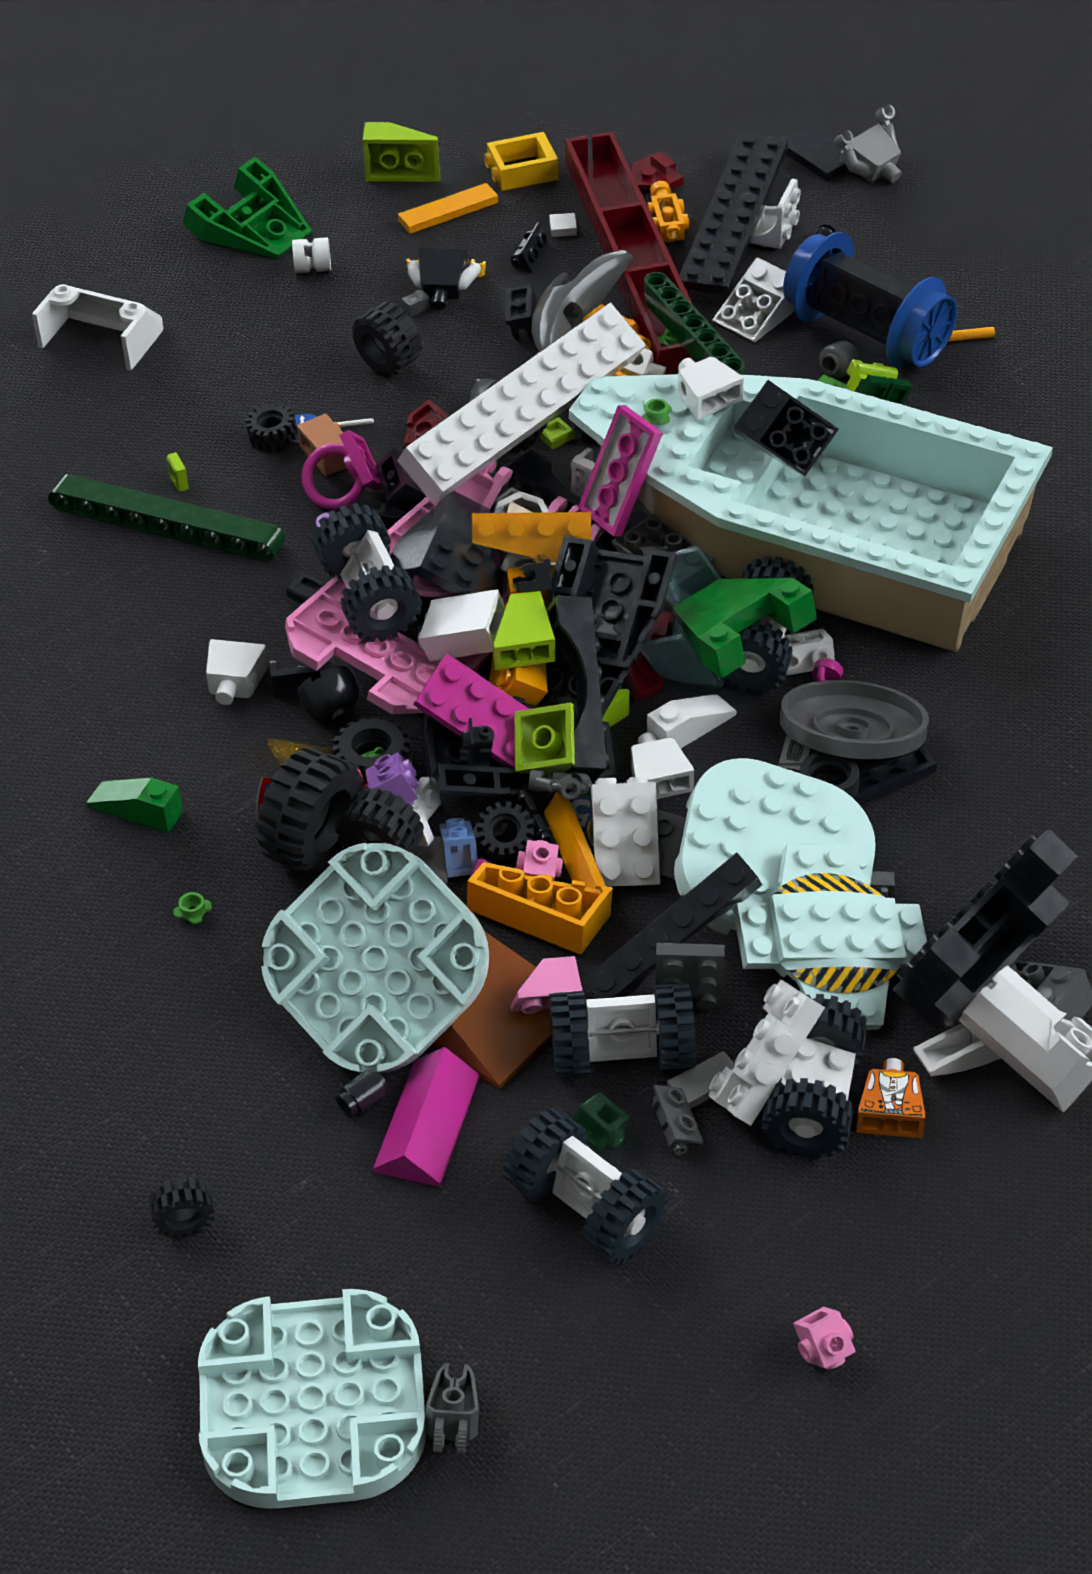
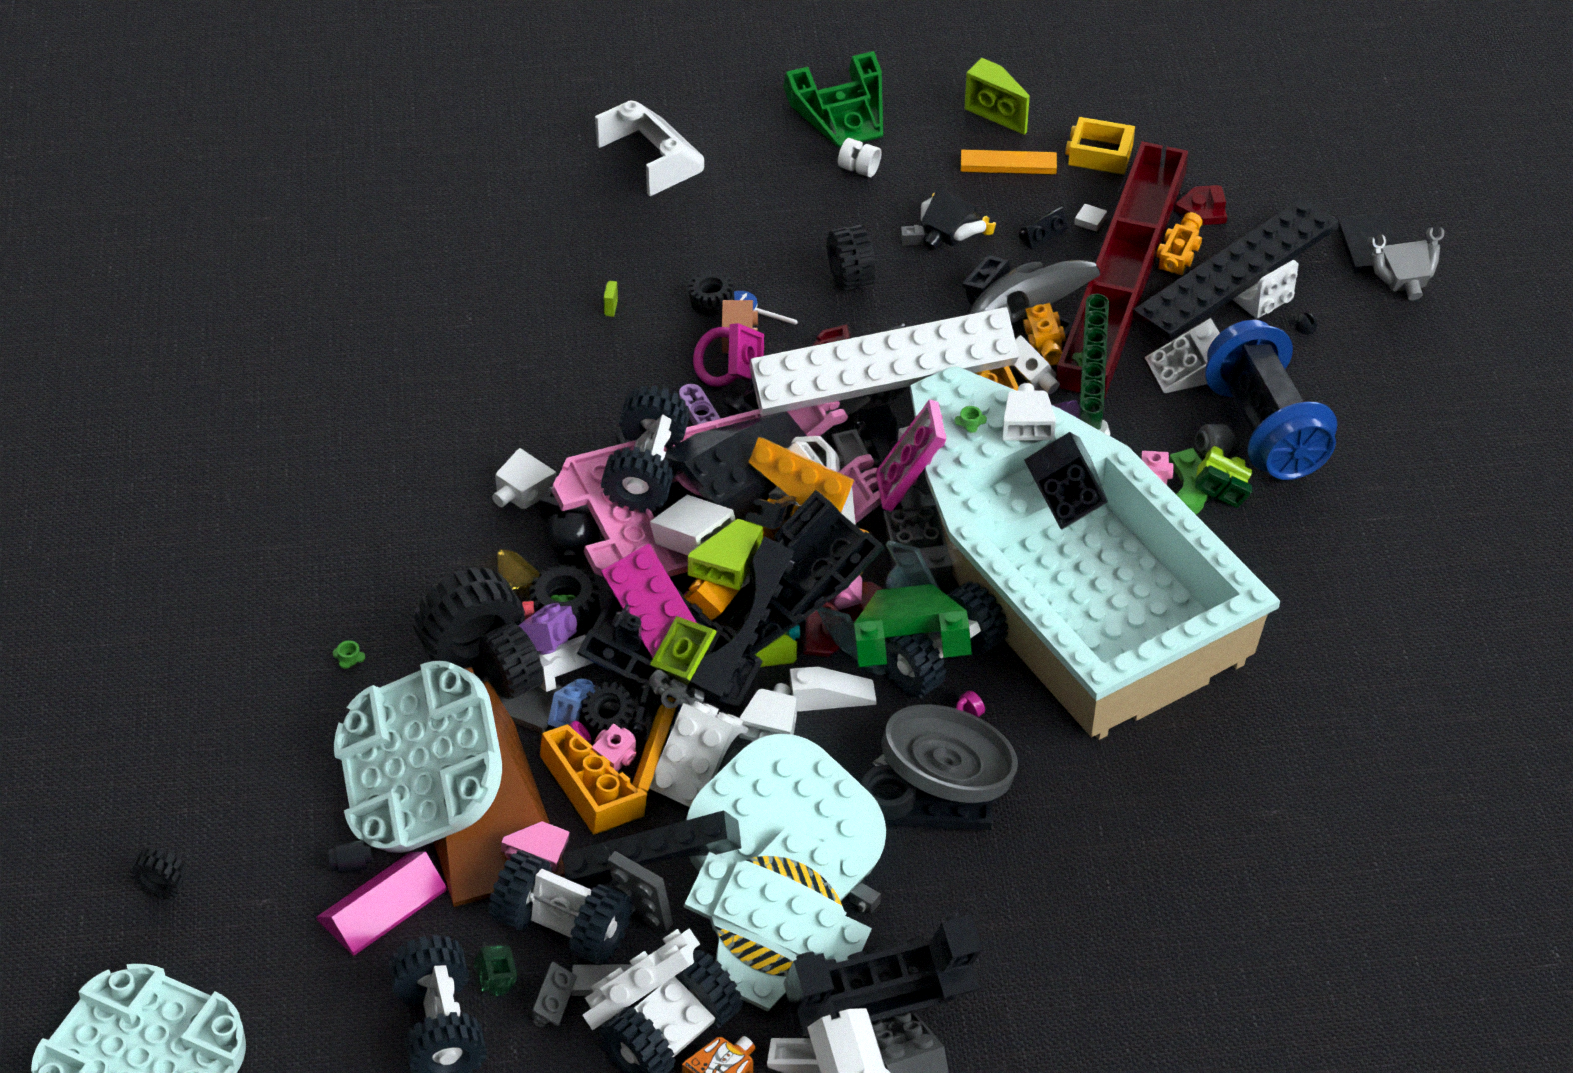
camera: 30 degrees right, 0 degrees up
(140, 801) = (376, 553): green slope -> none
(167, 517) = (572, 331): dark green beam -> none
(808, 648) = (968, 674): white bracket -> none
(970, 334) = (1352, 468): light orange bar -> none

